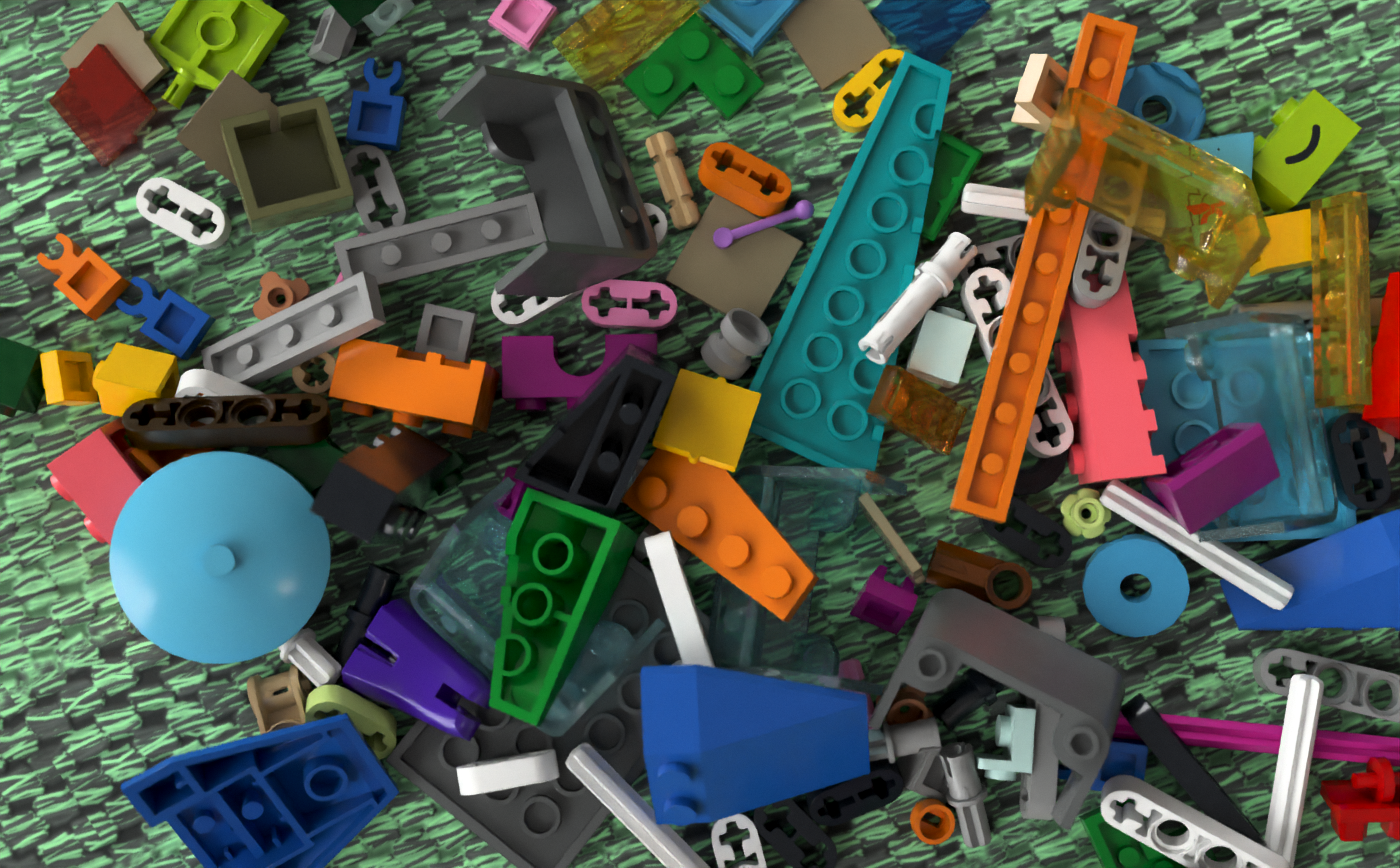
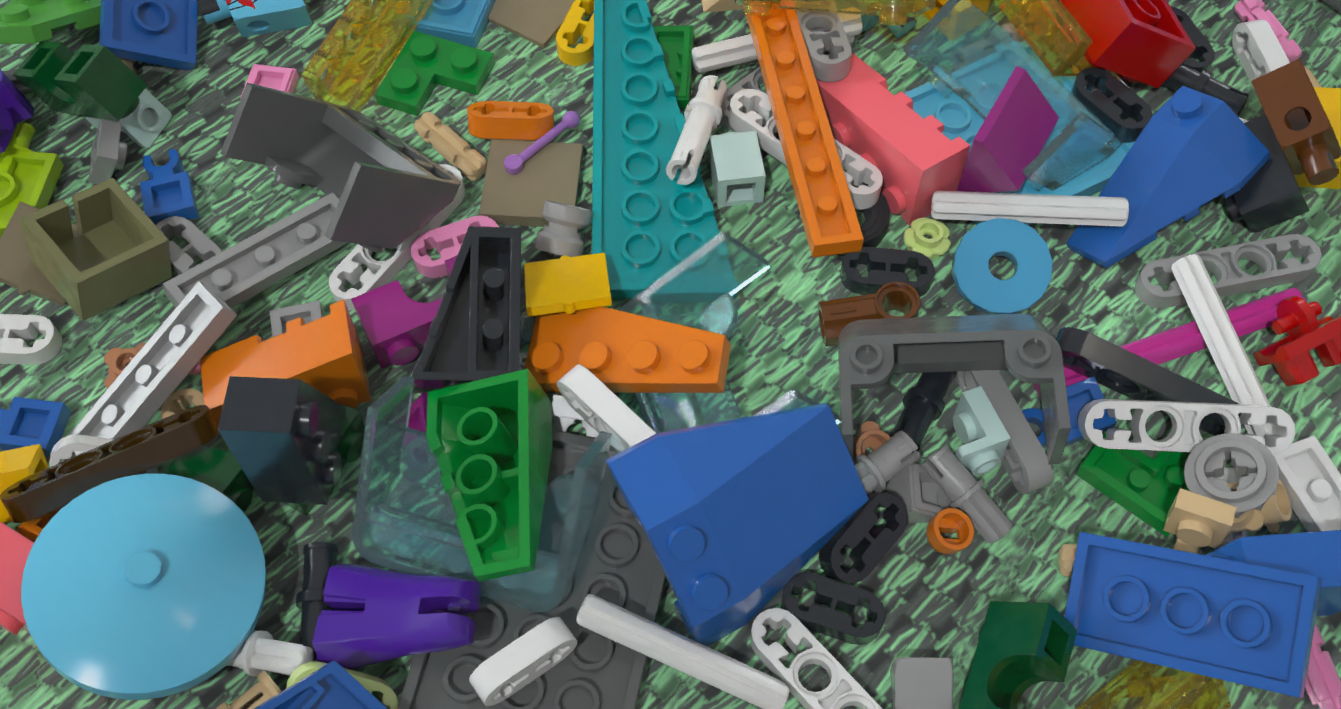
camera: 30 degrees left, 25 degrees down
(885, 603) = (803, 370): magenta tile -> none
(891, 540) = (778, 309): dark tan piece -> none
(917, 410) = (743, 212): clear orange plate -> none

